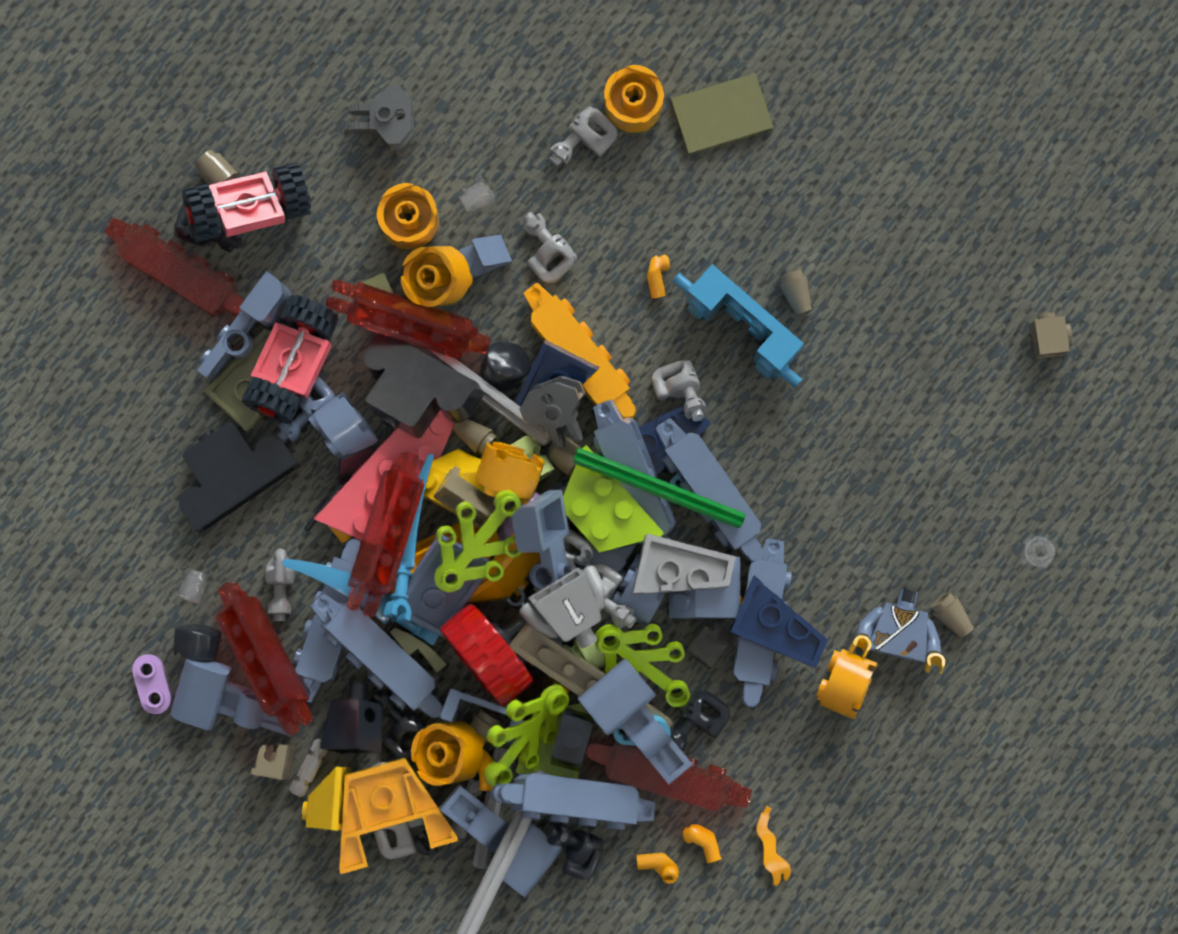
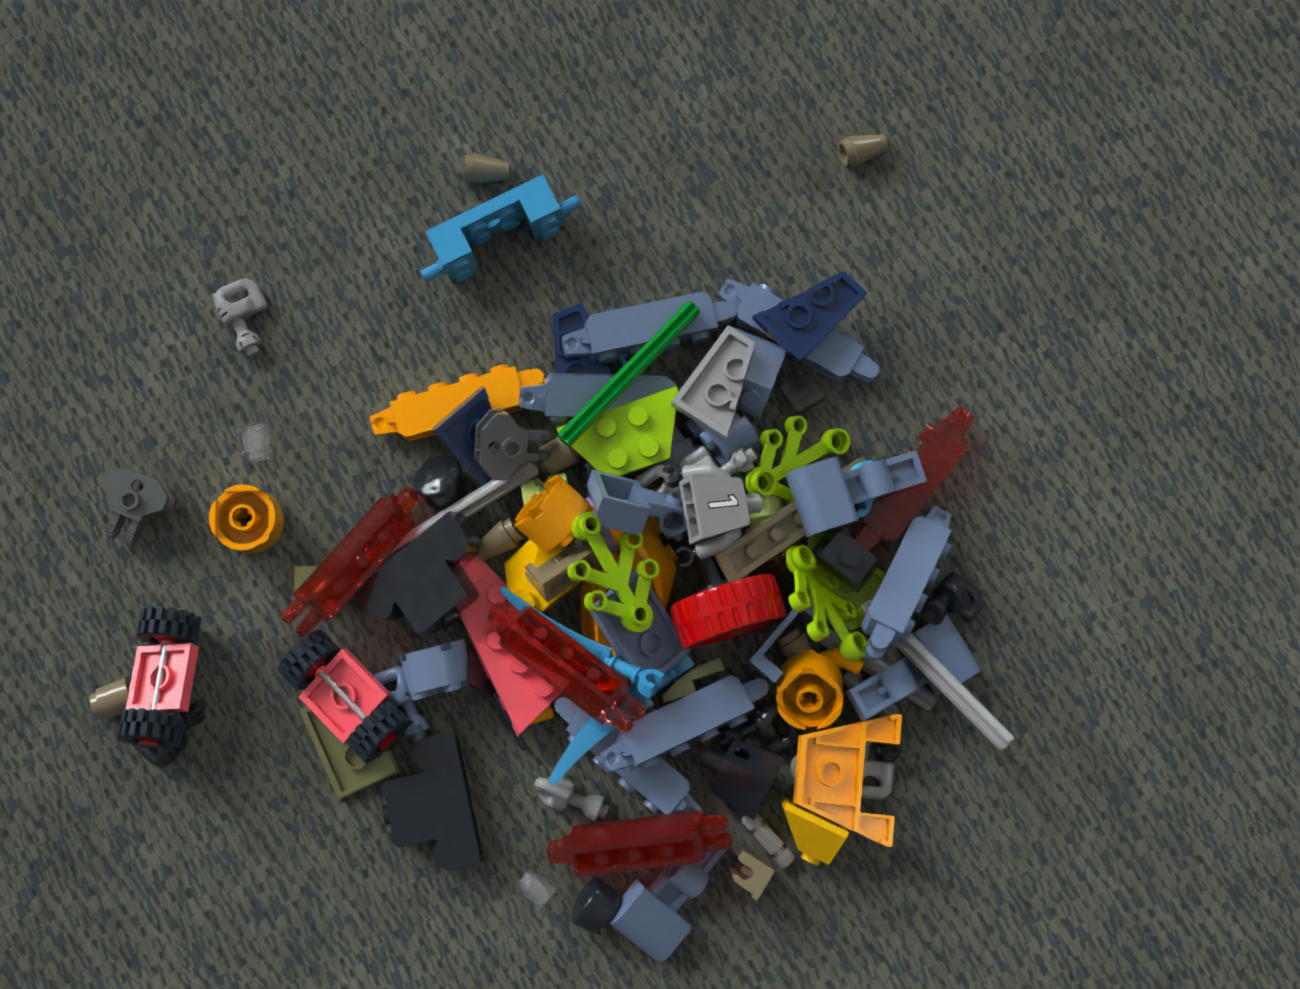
camera: 70 degrees left, 0 degrees up
(153, 683) = (619, 969): lavender plate -> none
(174, 269) = (200, 780): clear red hinge -> none
(262, 305) = (275, 703): sand blue plate -> none
(435, 276) = (304, 512): light orange brick -> none
(486, 254) = (320, 467): sand blue slope -> none
(551, 248) = (340, 388): light grey piece -> none
(621, 87) = (211, 234): light orange brick -> none
(654, 275) = (412, 300): light orange arm -> none
(661, 864) = (997, 523): light orange arm -> none
(678, 386) = (532, 317): light grey piece -> none
(693, 716) = (864, 433): black piece -> none
(703, 838) = (987, 472): light orange arm -> none
(721, 114) = (277, 171): olive tile -> none
(772, 861) = (1033, 415): light orange hair -> none
(846, 684) = (891, 271): light orange brick -> none
(900, 632) = (861, 202): sand blue torso -> none
(1029, 556) = (833, 52): clear brick -> none

